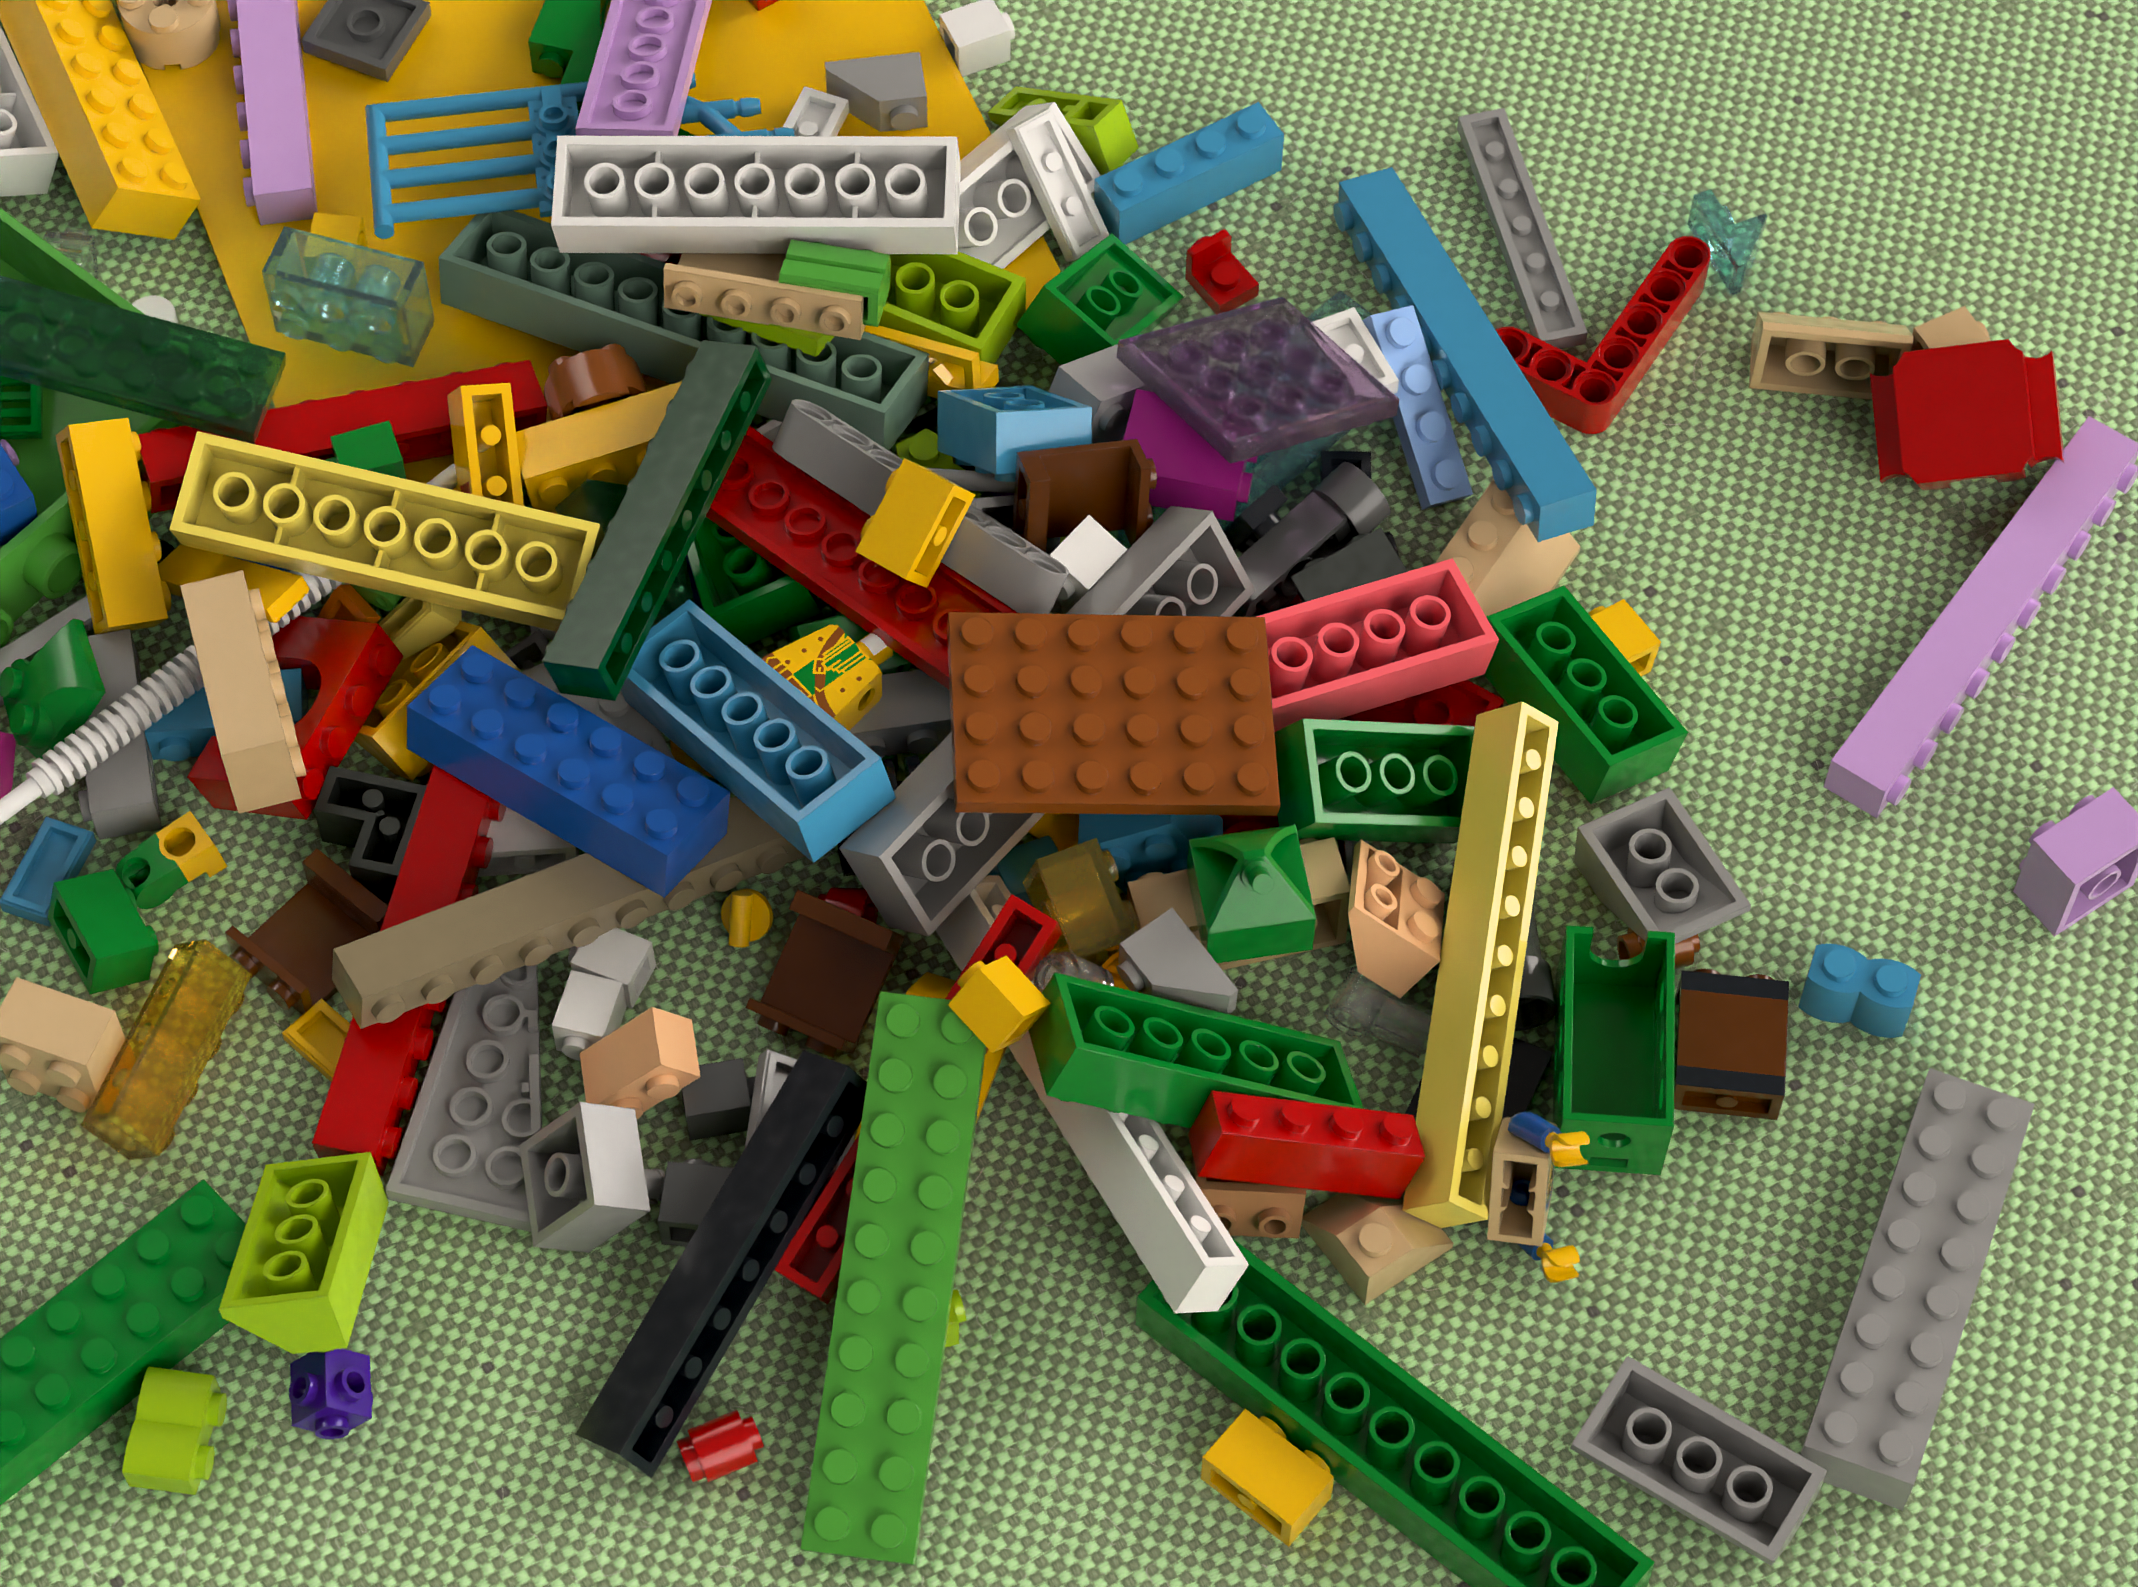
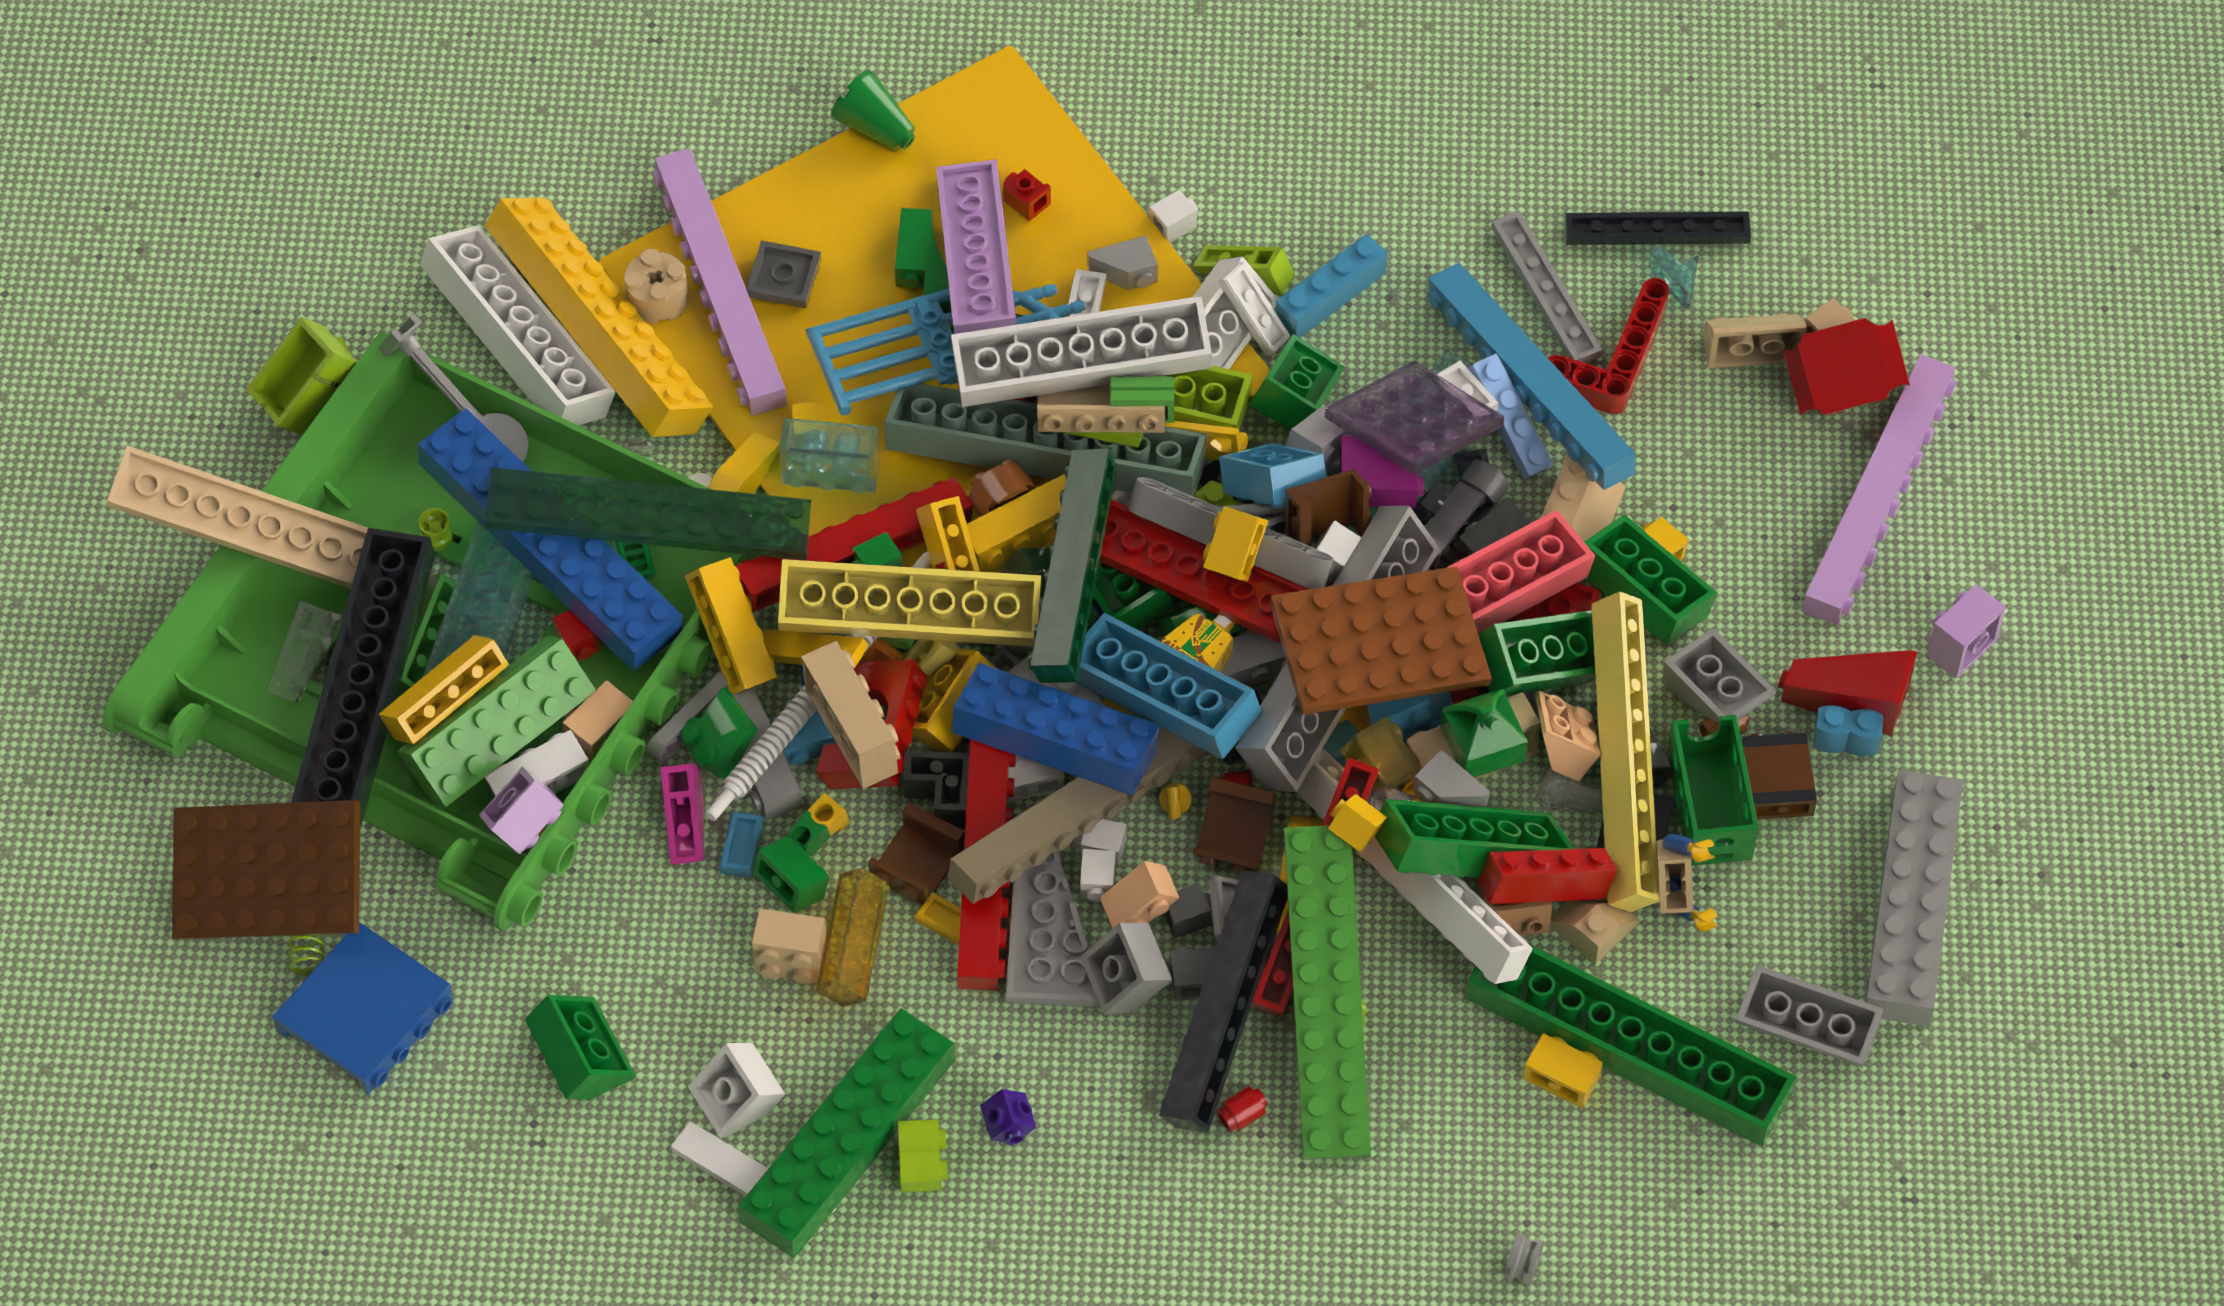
camera: 10 degrees left, 0 degrees up
(221, 297) = (746, 466): none -> yellow slope
(307, 1252) = (976, 1037): lime slope -> none
(1219, 274) = (1364, 349): red bracket -> none
(1713, 166) = (1657, 228): none -> black plate
(1882, 914) = (1851, 682): none -> red slope

